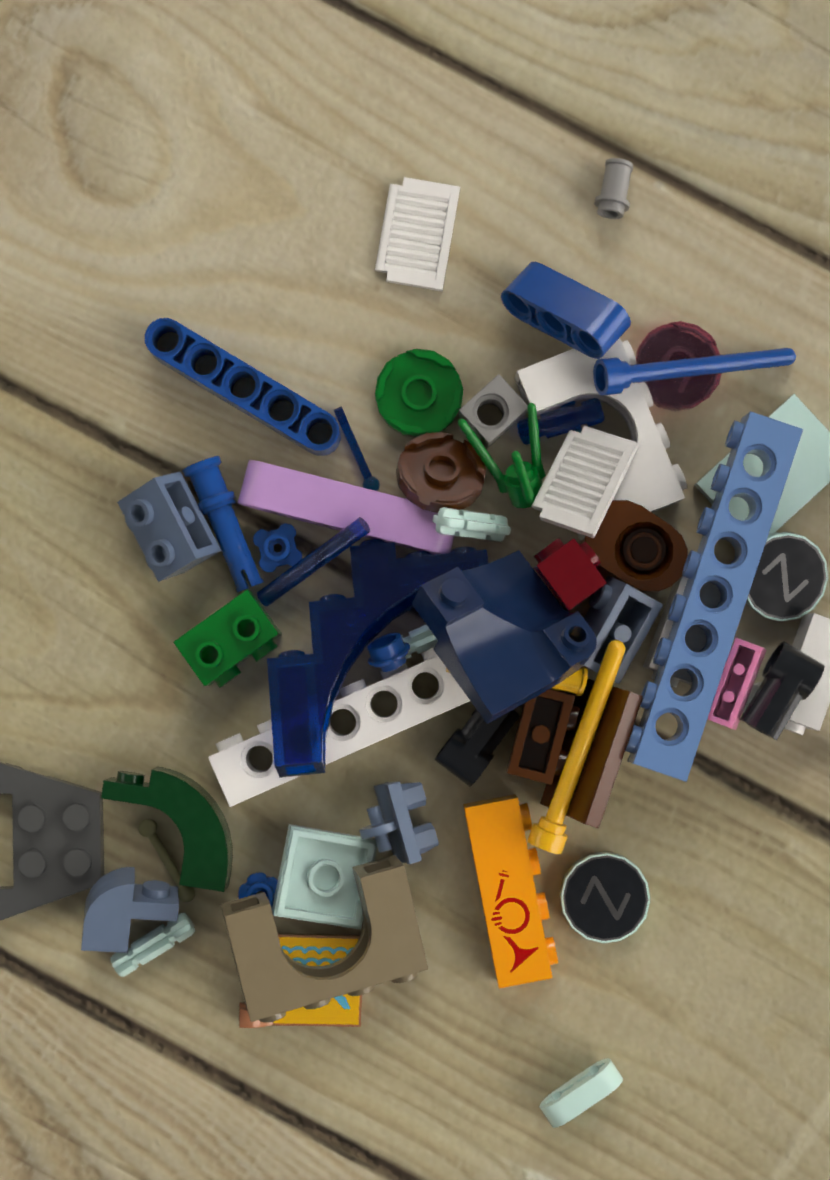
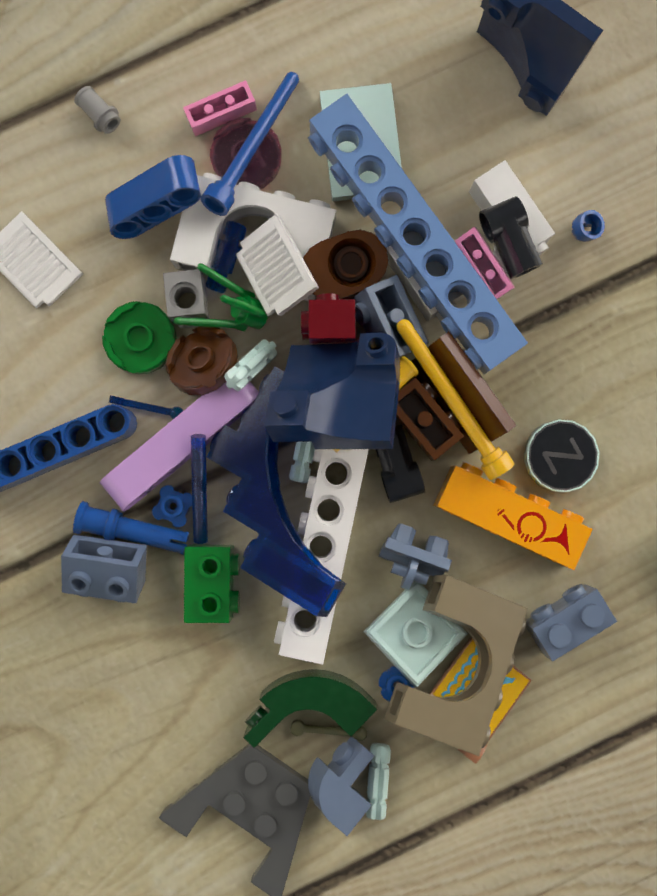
camera: 55 degrees left, 0 degrees up
(388, 652) = (296, 482): blue plate -> none
(445, 1020) = (569, 621): none -> sand blue brick
(704, 308) = (220, 108): none -> bright pink piece
(788, 577) = (440, 181): black tile -> none

